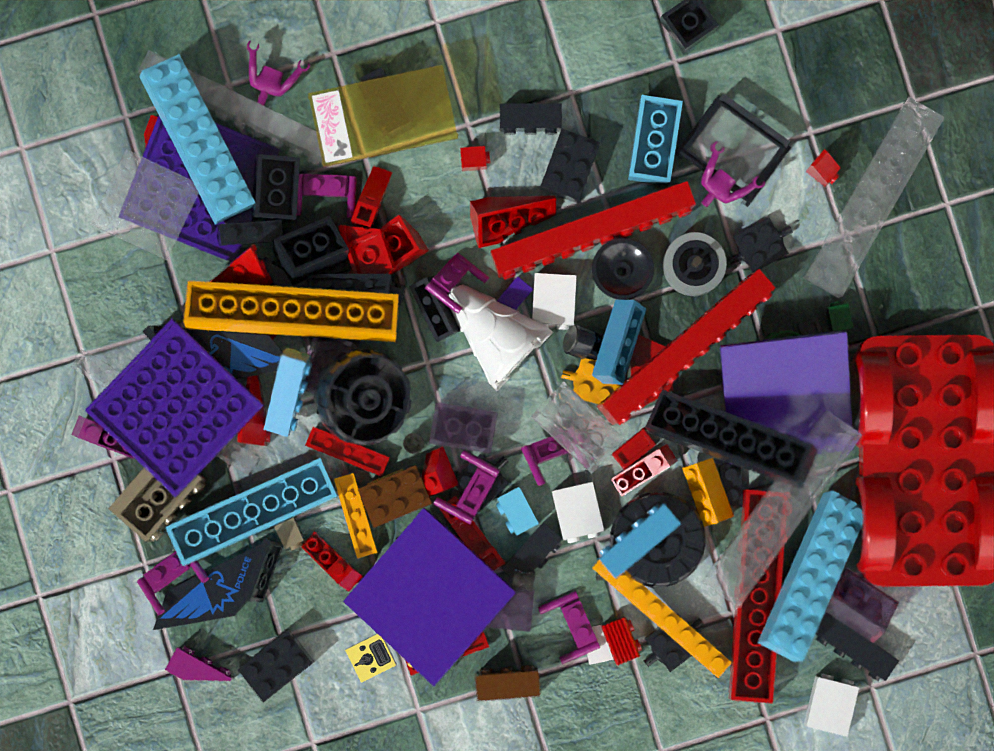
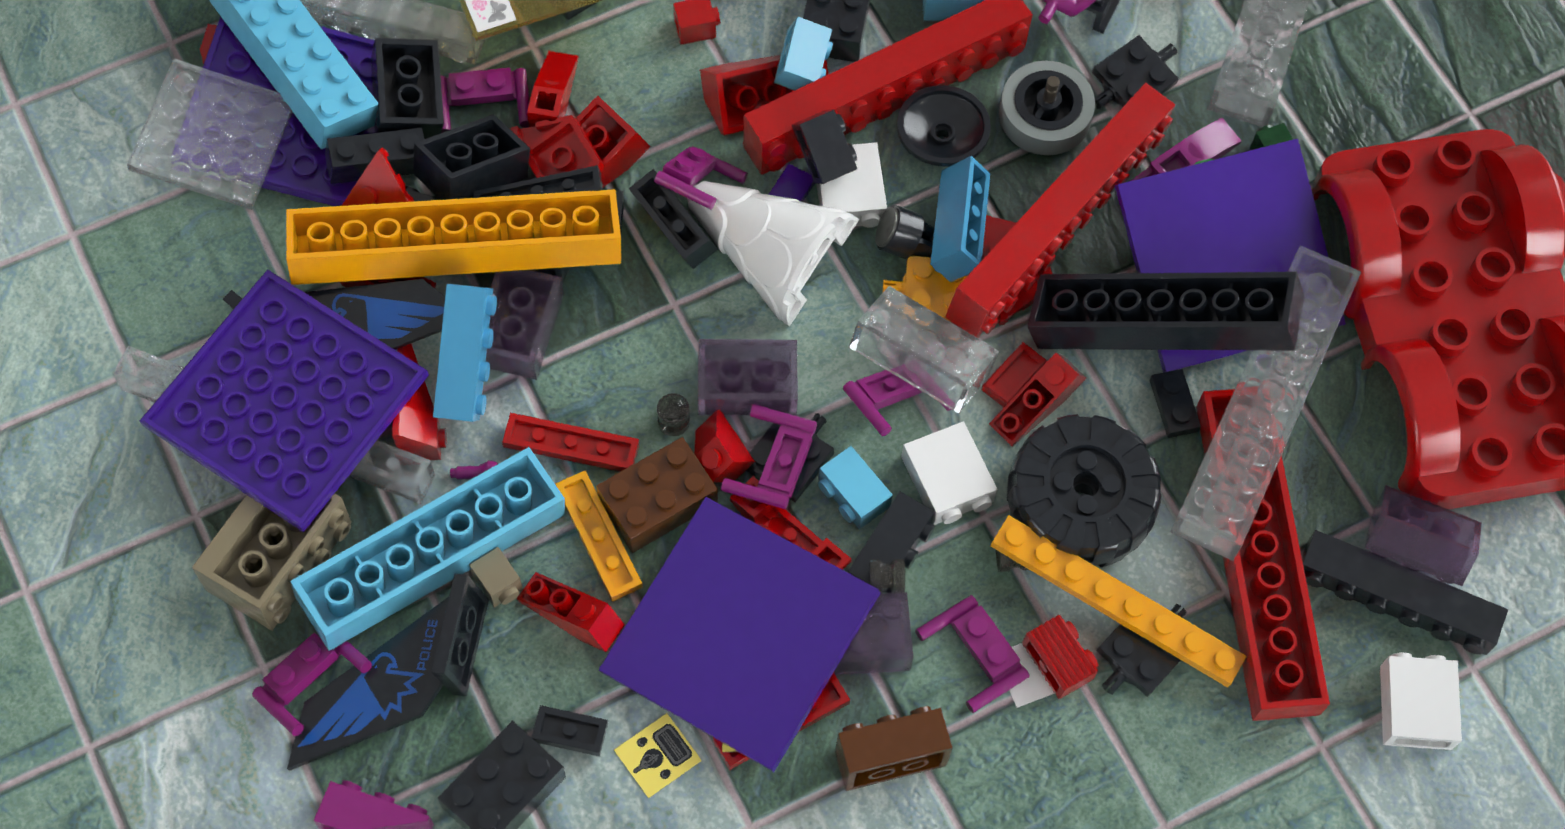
camera: 15 degrees left, 20 degrees down
(92, 432) = (177, 478): magenta slope -> none
(293, 461) = (470, 472): none -> magenta piece
(320, 636) = (570, 730): none -> black plate
(343, 390) = (583, 344): black wheel -> none
(539, 207) = (803, 54): none -> medium azure brick
(539, 282) = (825, 146): none -> black brick
(639, 540) = (1058, 478): dark azure brick -> none
(708, 492) = (1144, 410): light orange brick -> none
(776, 319) = (1207, 143): none -> magenta slope
(812, 576) = (1340, 502): medium azure brick -> none

